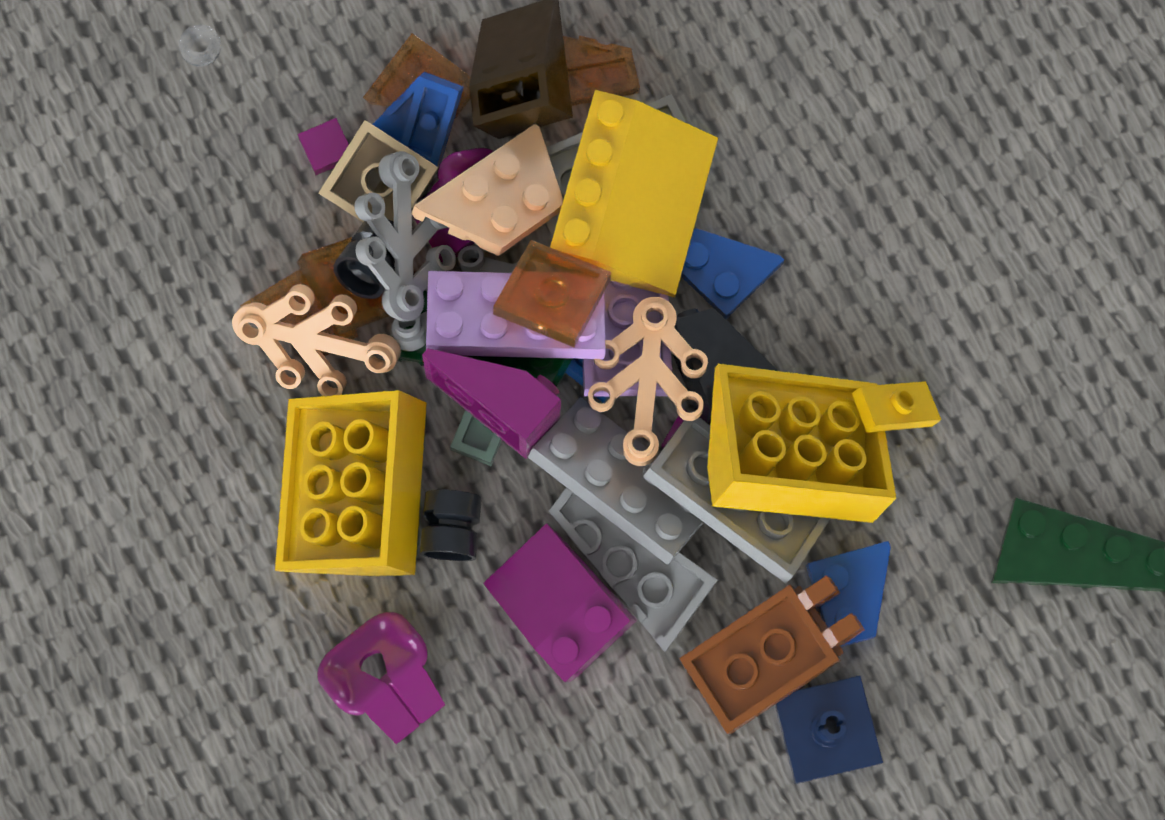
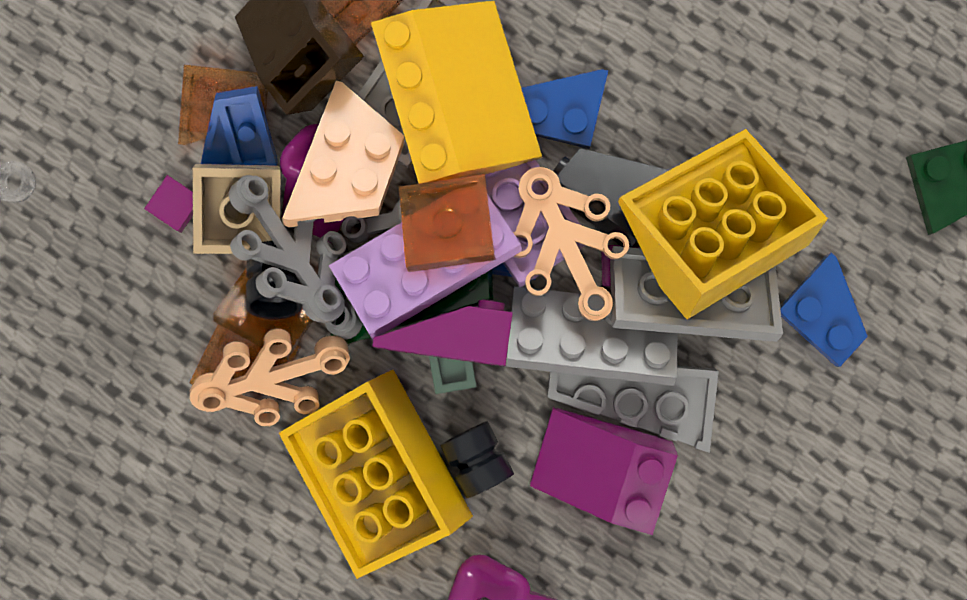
camera: 30 degrees left, 10 degrees up
(769, 653) = (796, 404): dark orange tile -> none
(828, 730) = (873, 434): dark blue tile -> none
(896, 406) = (775, 139): yellow plate -> none

